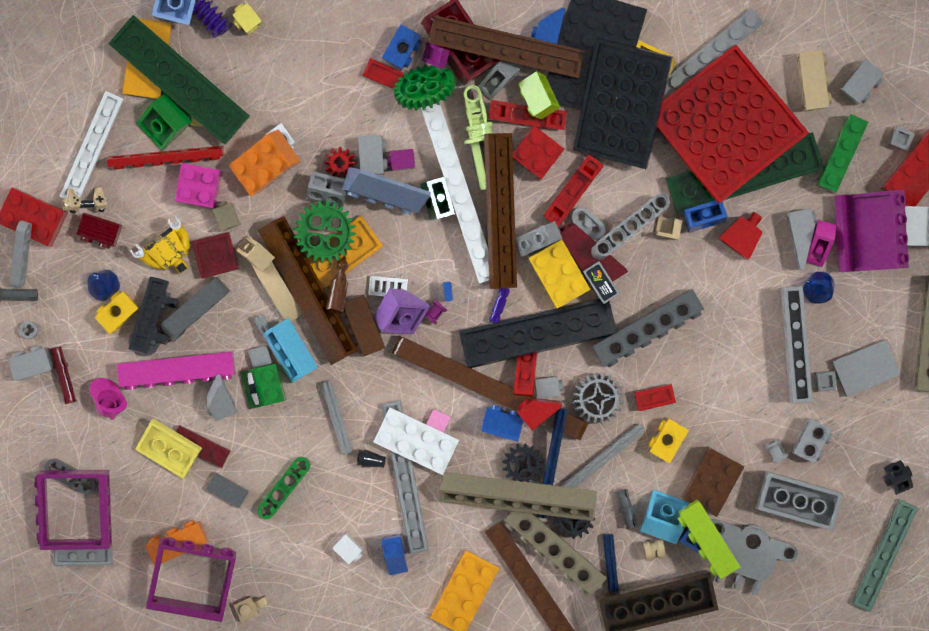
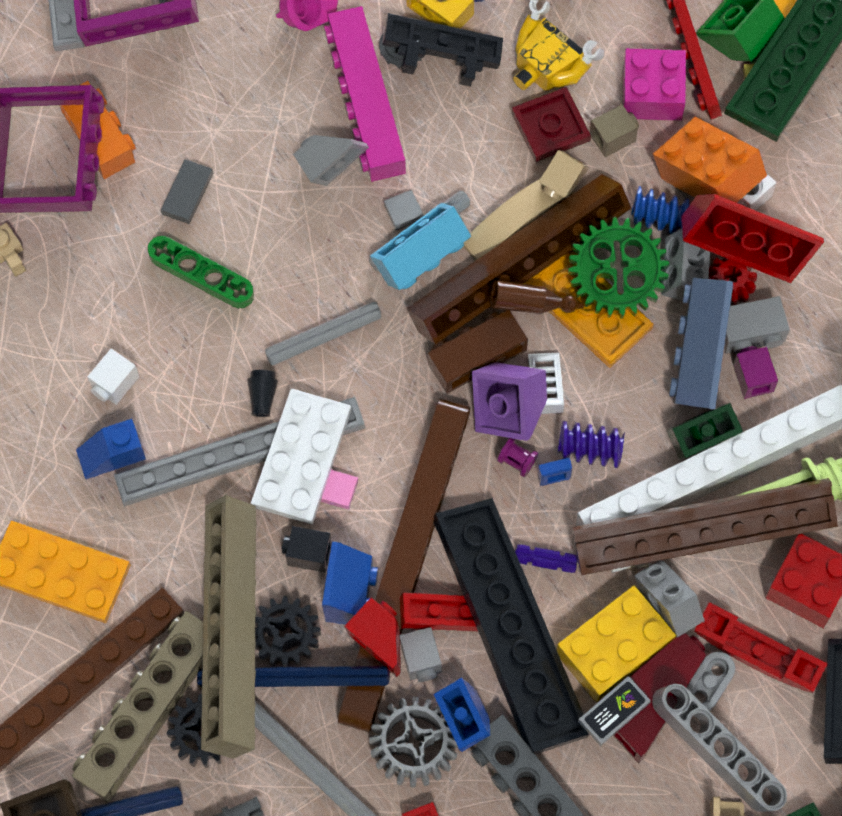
camera: 85 degrees right, 20 degrees down
(168, 448) = (241, 97): light yellow tile -> none
(194, 309) = (463, 101): dark grey beam -> none
(210, 450) = (251, 146): dark red plate -> none
(263, 386) = (359, 221): green slope -> none
(289, 196) = (658, 210): none -> blue piece
(320, 150) = (748, 236): none -> red slope
(435, 266) = (591, 444): none -> dark purple piece
(474, 445) = (307, 549): none -> black brick
(590, 367) = (464, 713): none -> blue slope

